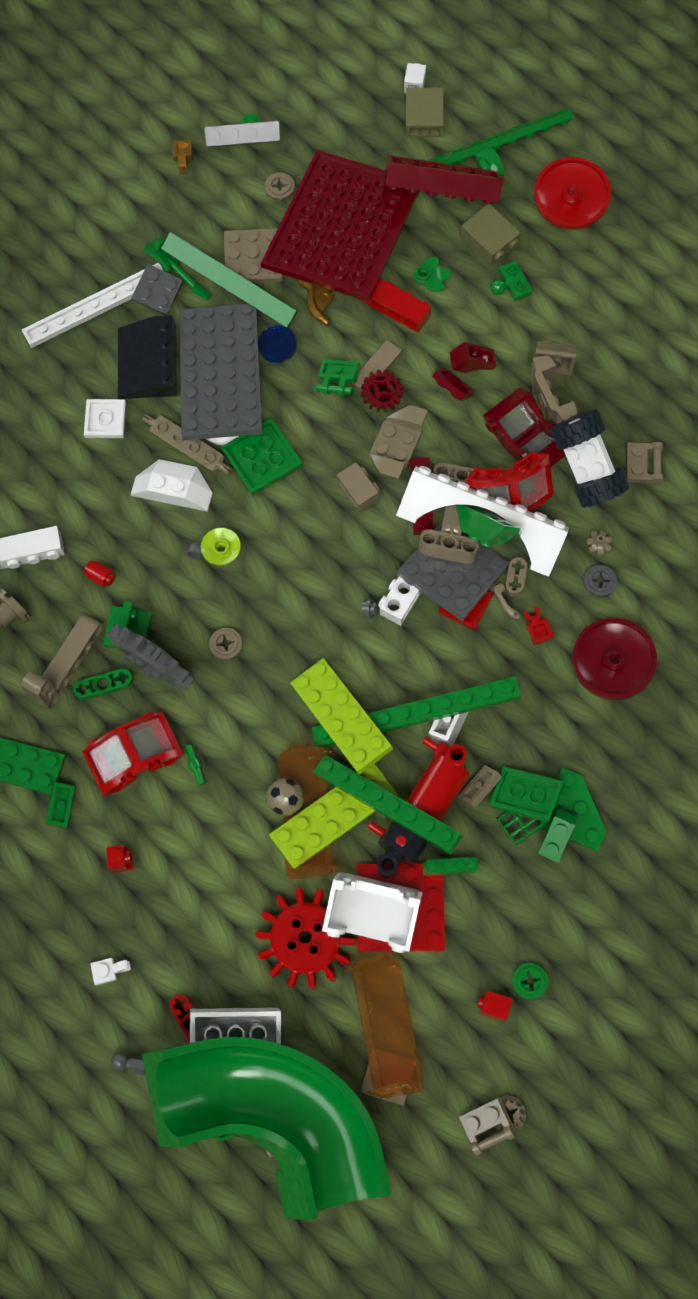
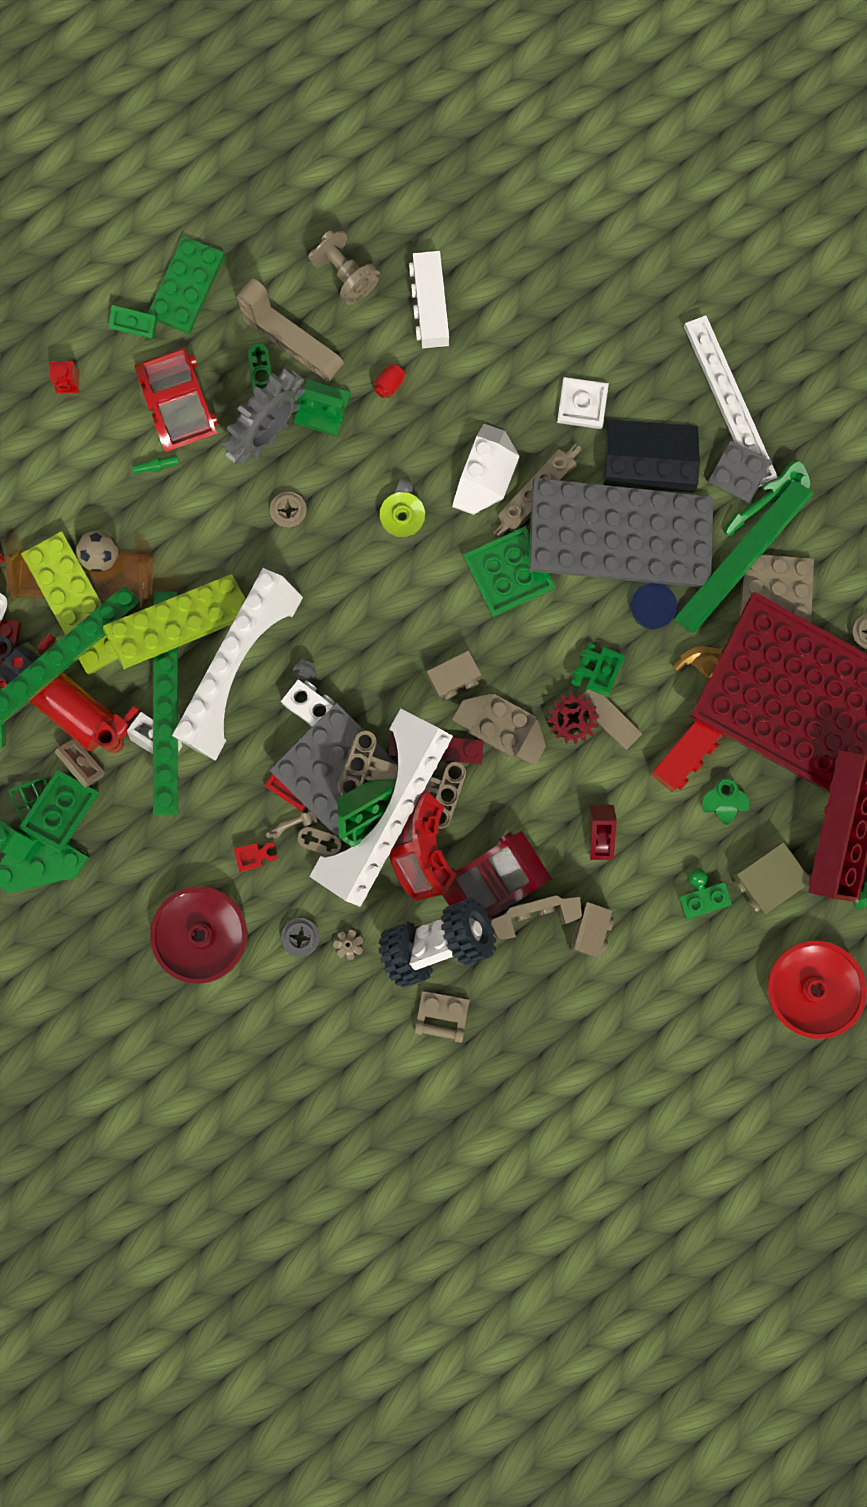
camera: 90 degrees right, 10 degrees up
(374, 656) = (203, 720): none -> white arch
(453, 384) = (572, 803): dark red plate -> none

